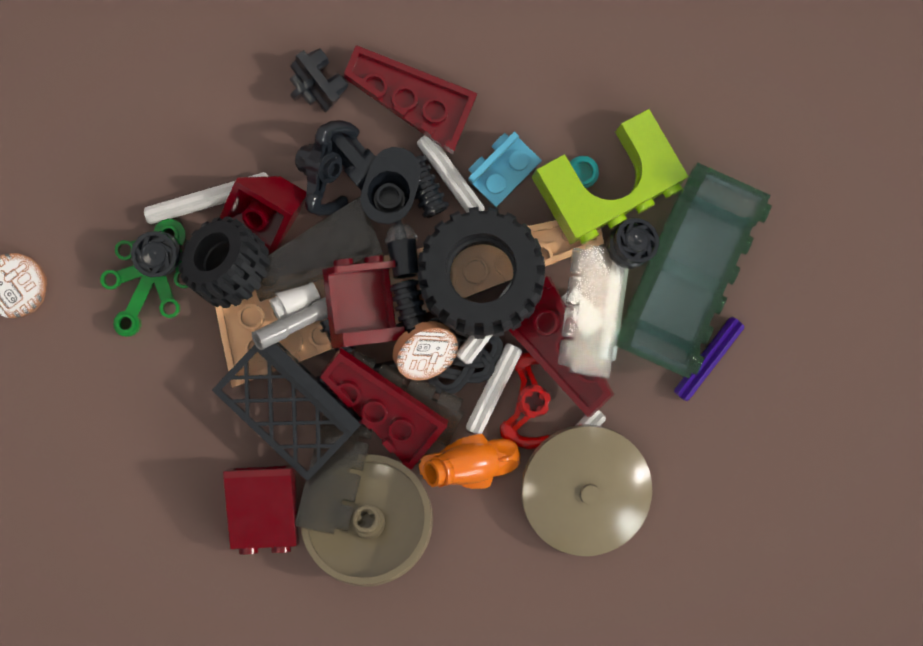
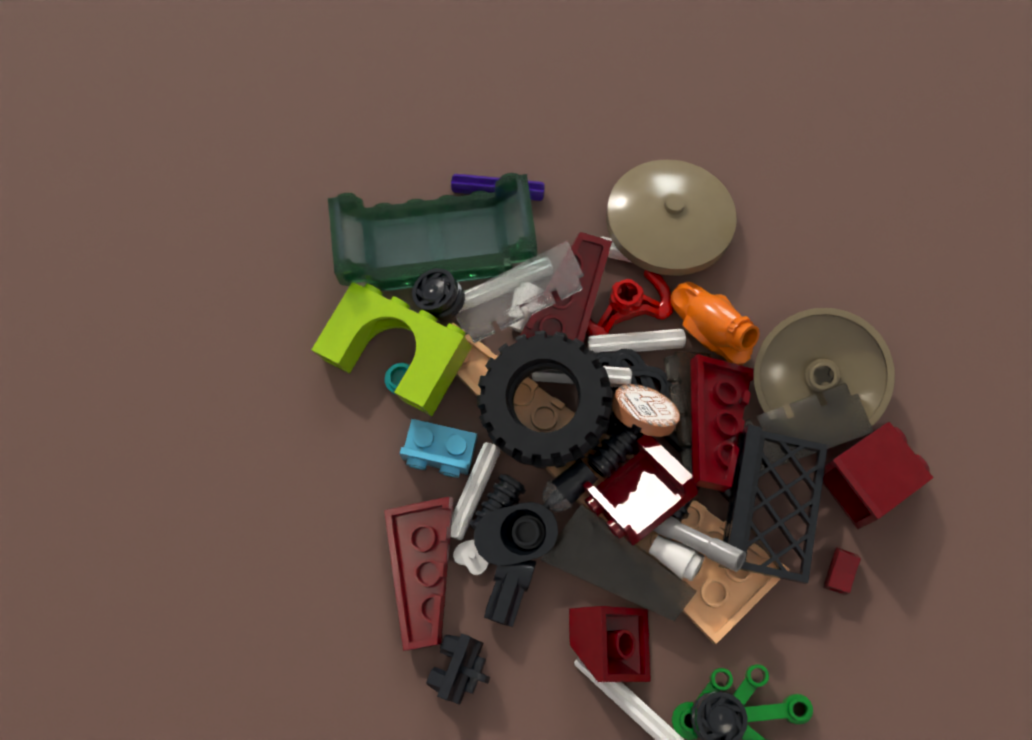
camera: 115 degrees left, 15 degrees down
(206, 430) = (842, 571): none -> dark red piece
(224, 262) = (685, 669): black tyre -> none
(323, 166) = (536, 608): black piece -> none
(402, 138) = (468, 556): none -> white piece

